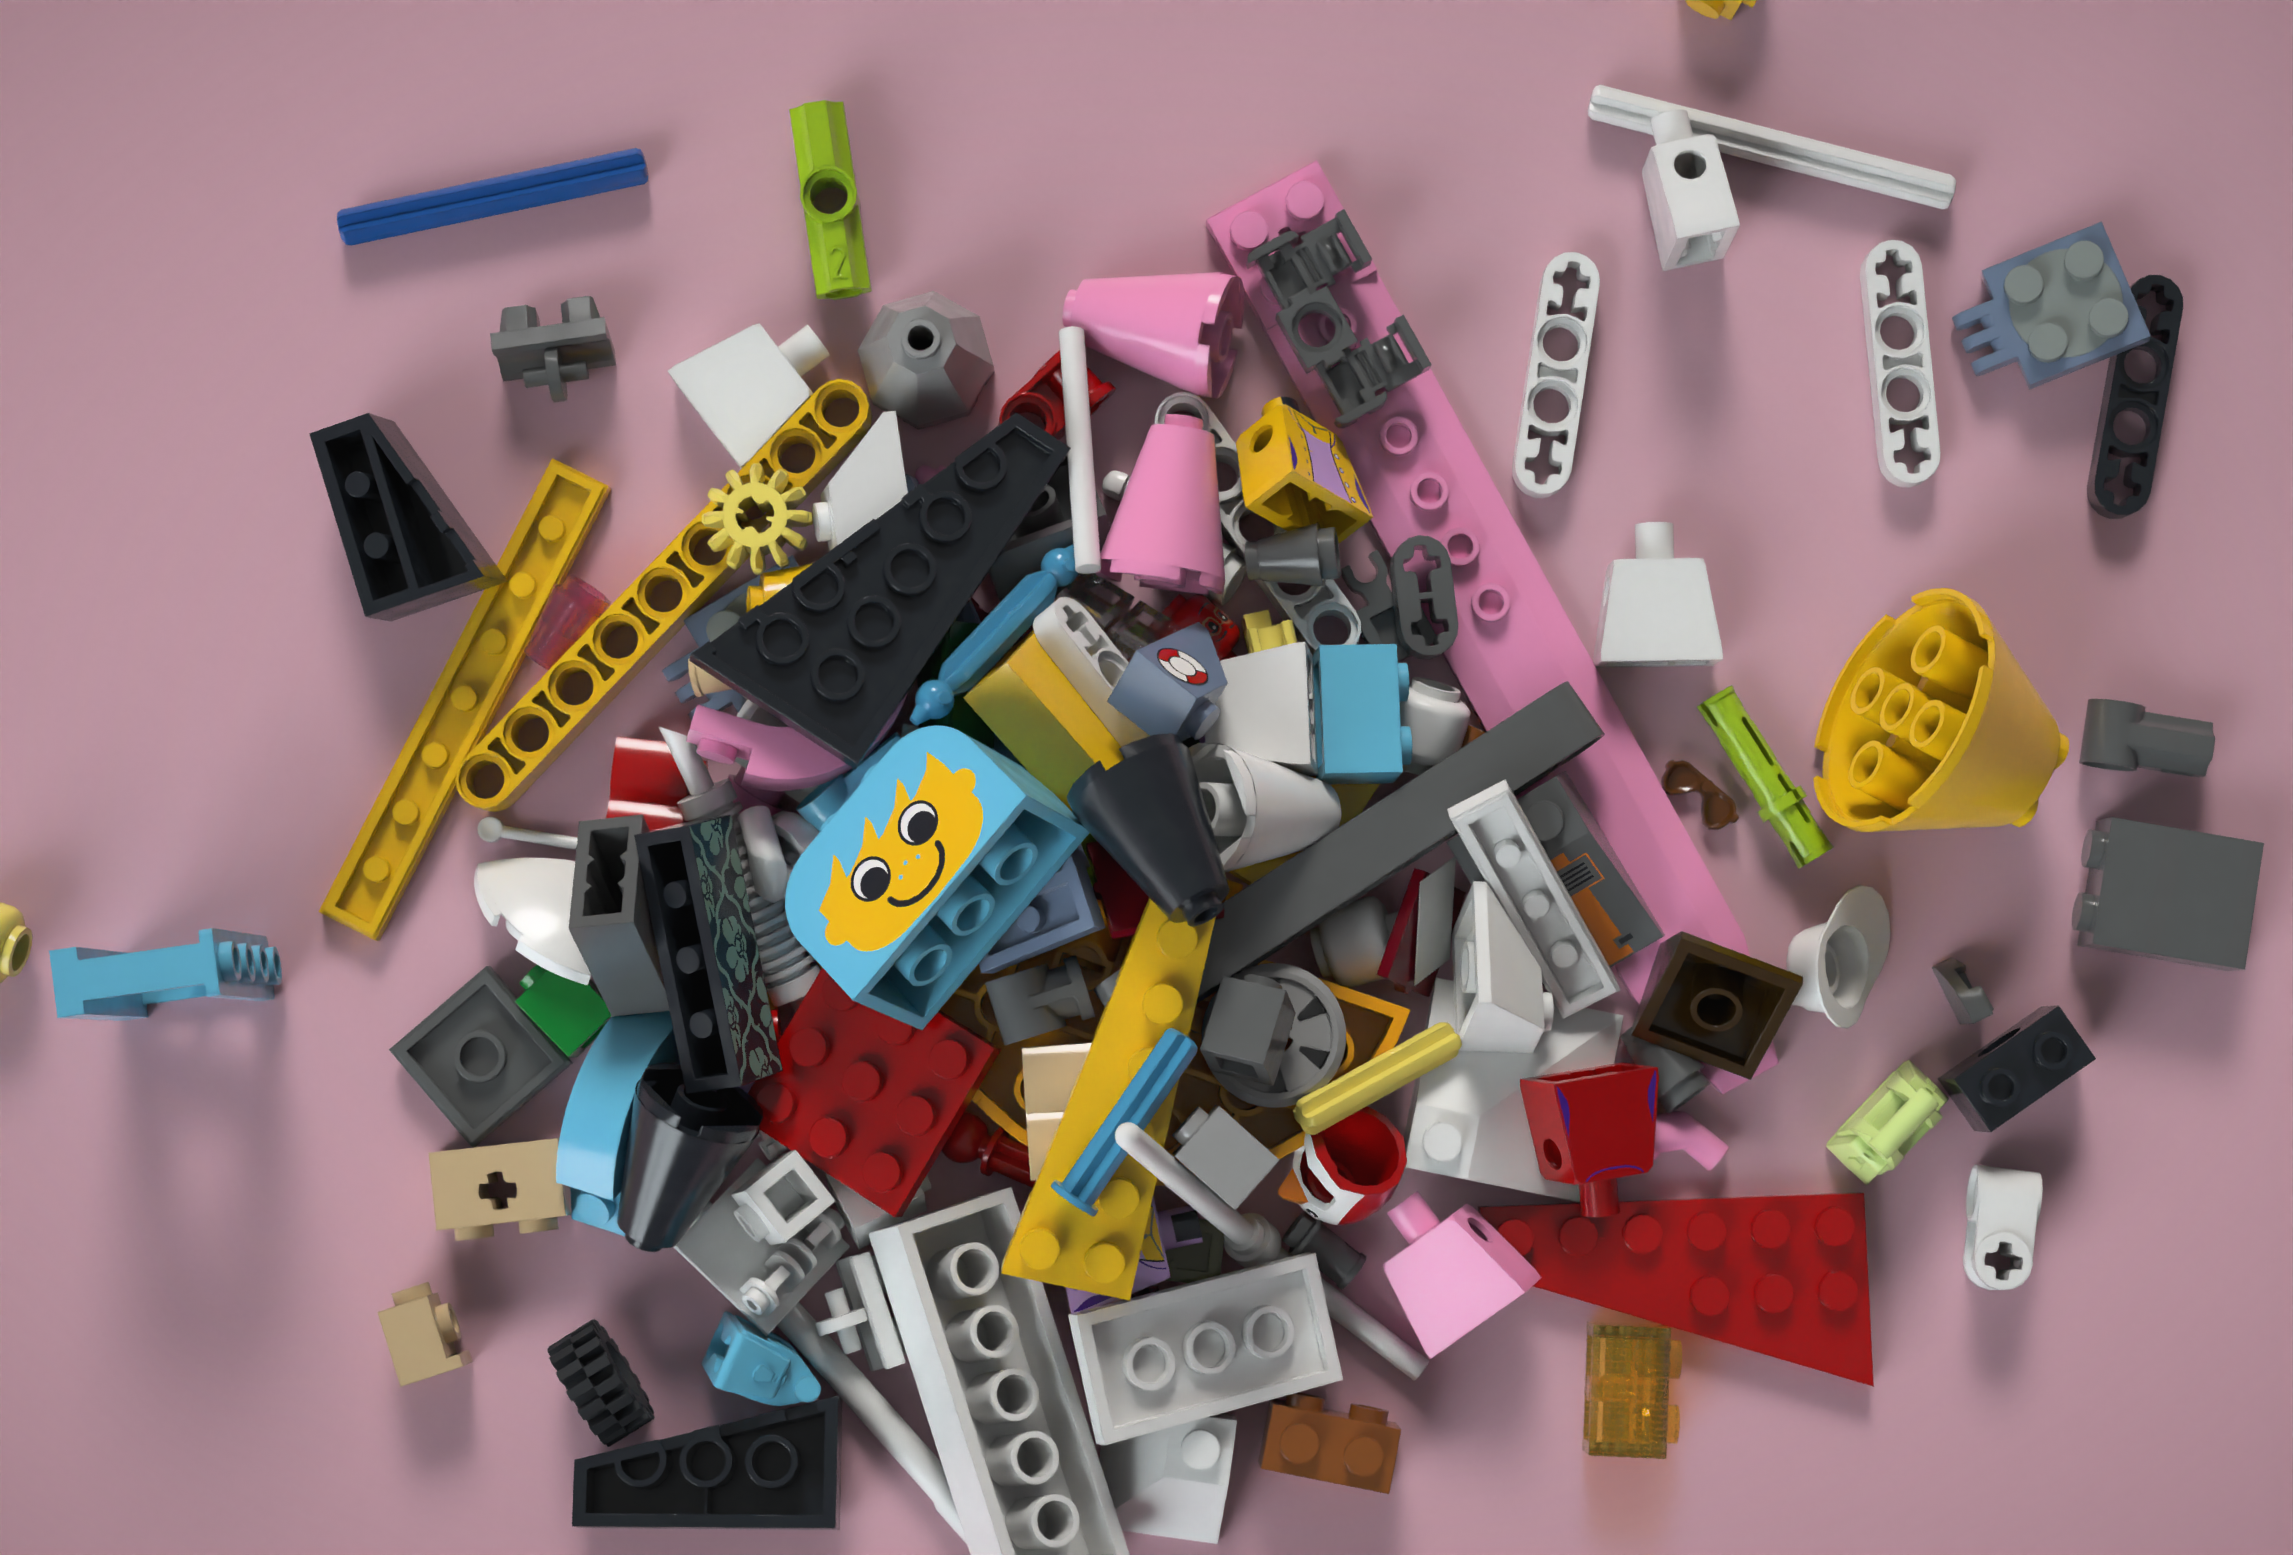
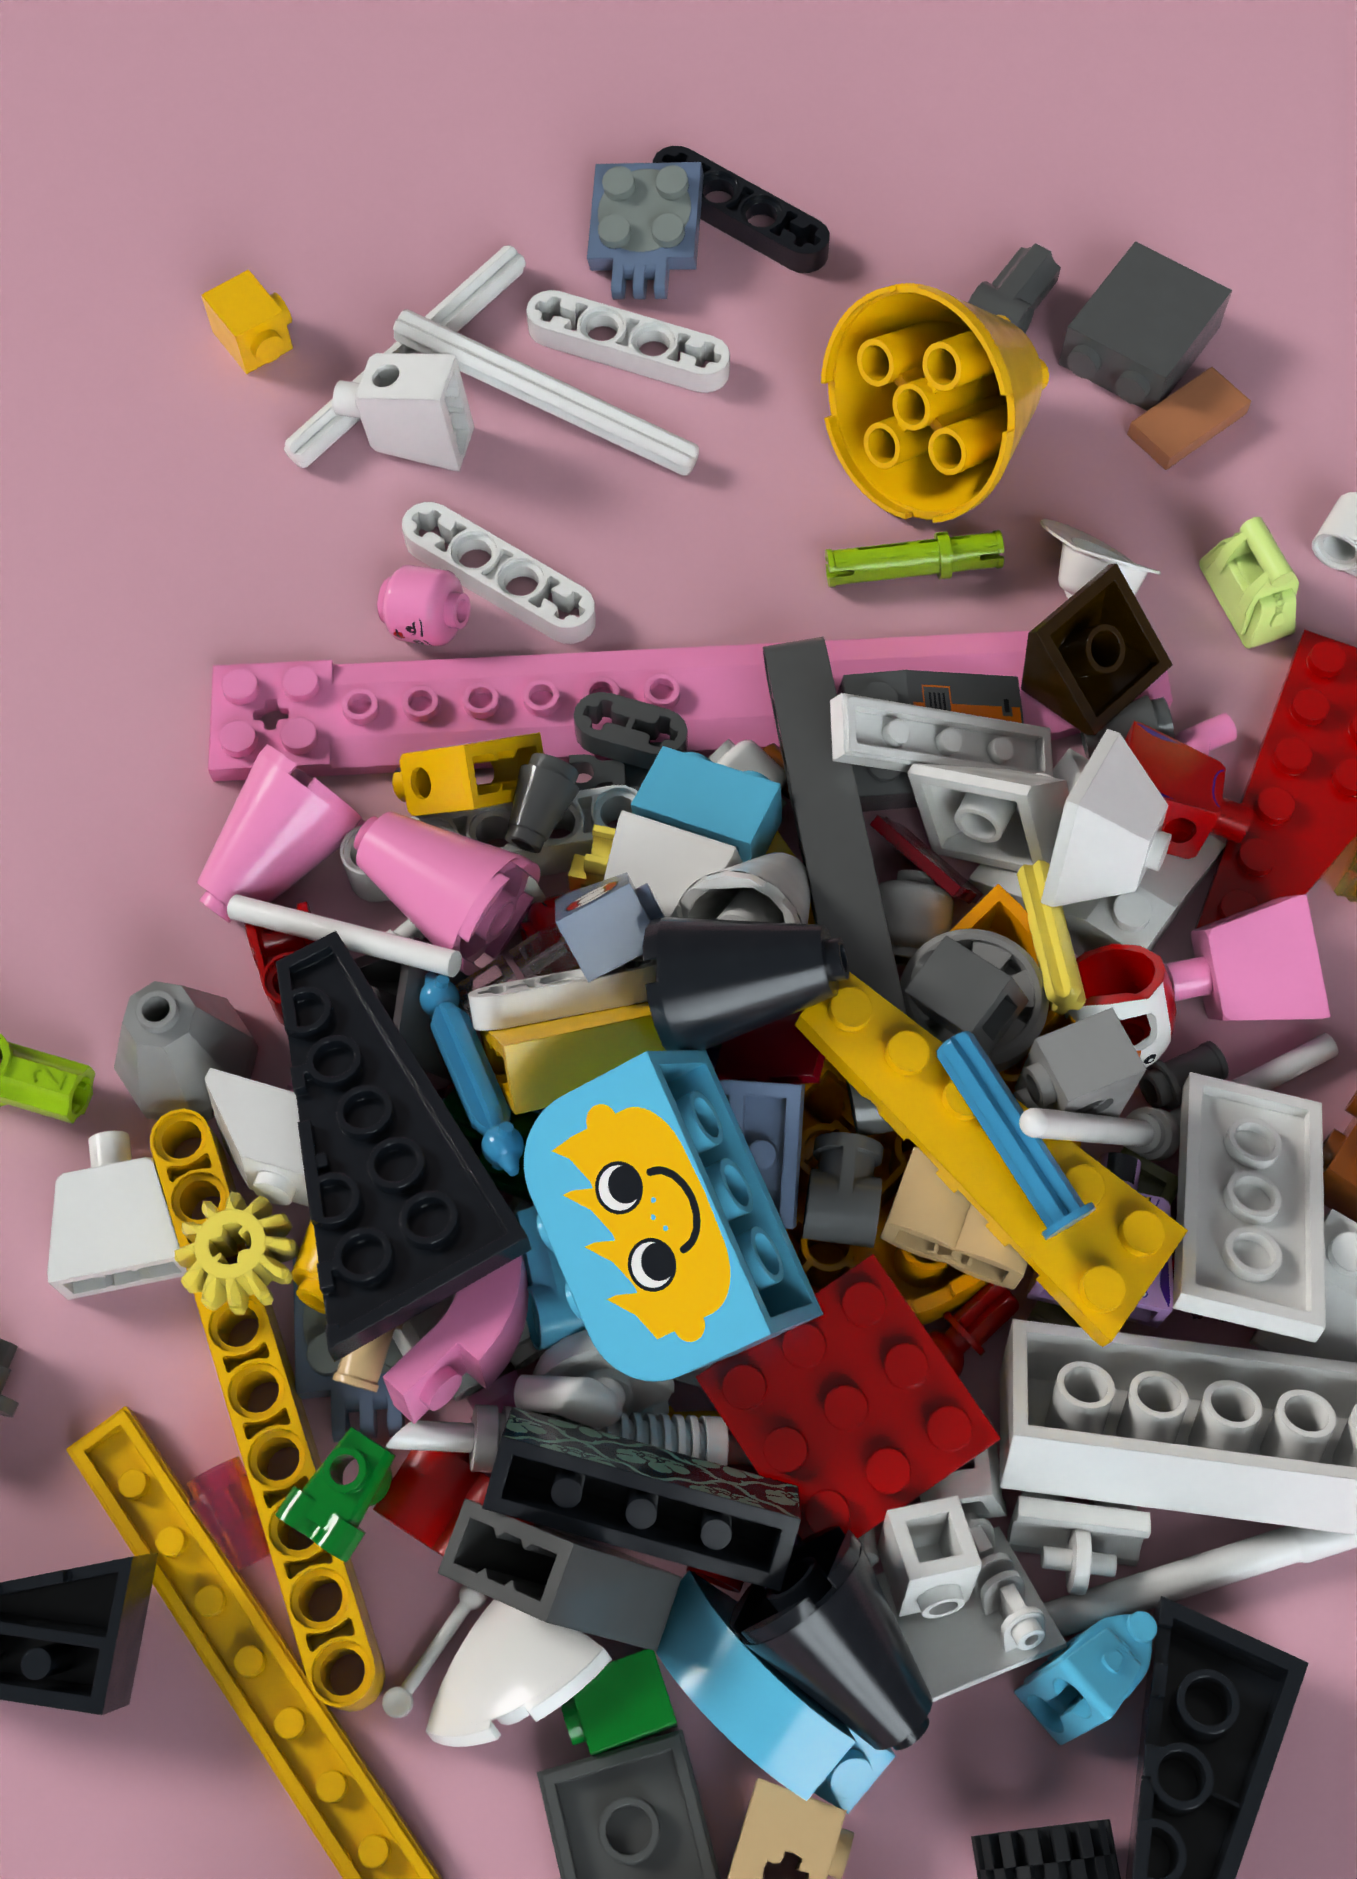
camera: 55 degrees left, 20 degrees down
(595, 704) = (333, 1511): none -> green plate
(1293, 279) = (405, 709): dark grey piece -> none
(1434, 920) = (921, 842): white sticker -> none
(1475, 326) = (423, 605): none -> bright pink head
(1496, 1088) = (1107, 829): none -> white slope
(1657, 607) = (733, 573): white torso -> none
(1716, 805) = (920, 608): reddish brown piece -> none
(1783, 315) = (548, 393): none -> white axle
(1966, 1002) = (1165, 496): dark grey tile -> none
(2016, 1068) = (1244, 472): black brick -> none
(2081, 984) = (1189, 418): none -> nougat tile

